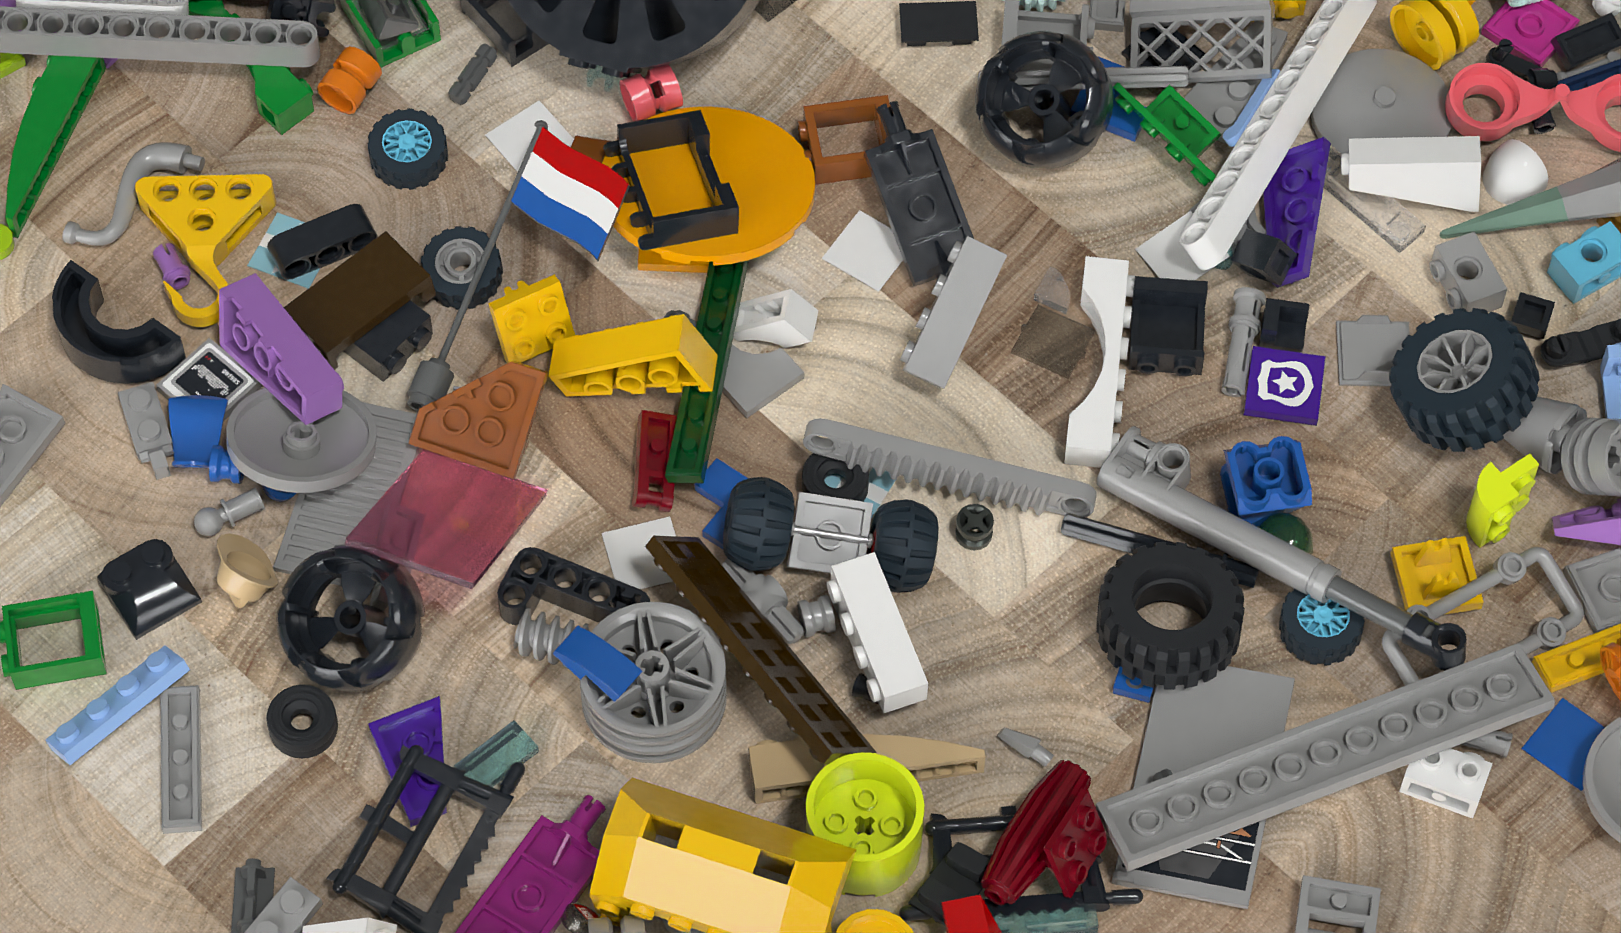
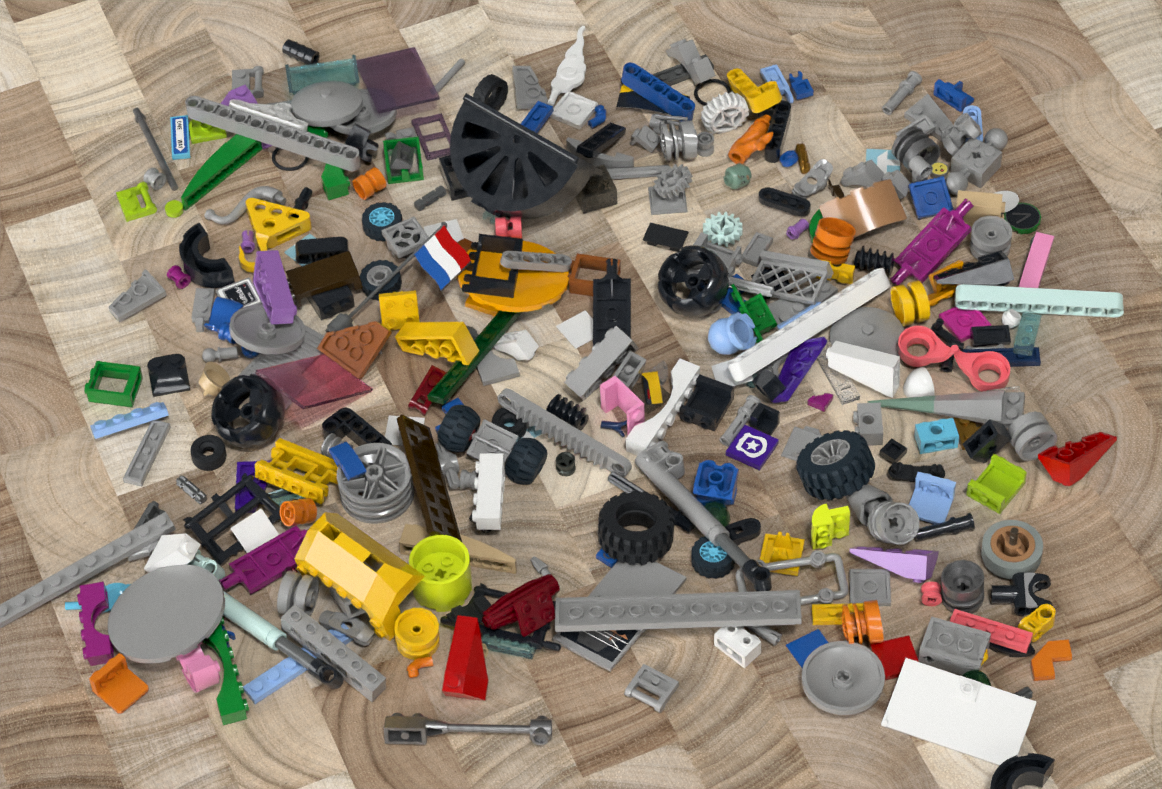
camera: 25 degrees right, 10 degrees down
(73, 379) = (175, 273): none -> magenta bush
(166, 95) = (287, 168): none -> black tyre
(236, 154) = (302, 202): none -> black axle
(303, 807) = (191, 489): none -> dark grey axle
(470, 855) = (254, 531): none -> white sticker
(476, 170) = (404, 237): none -> light grey piece
(498, 679) = (302, 459): none -> yellow fence
(537, 789) = (298, 512): none -> orange wheel
(706, 158) = (517, 259): none -> light grey beam
(931, 424) = (568, 413): none -> black piece
(1006, 317) = (631, 369): none -> light grey brick
(1026, 422) = (614, 426): none -> dark blue bar
(1034, 371) = (616, 393): none -> bright pink panel
(1056, 326) = (652, 388): none -> yellow sticker
(1154, 182) = (732, 334): none -> light blue tile
(1357, 544) = (749, 528): none -> black plate
(1359, 258) = (820, 402): none -> magenta tile

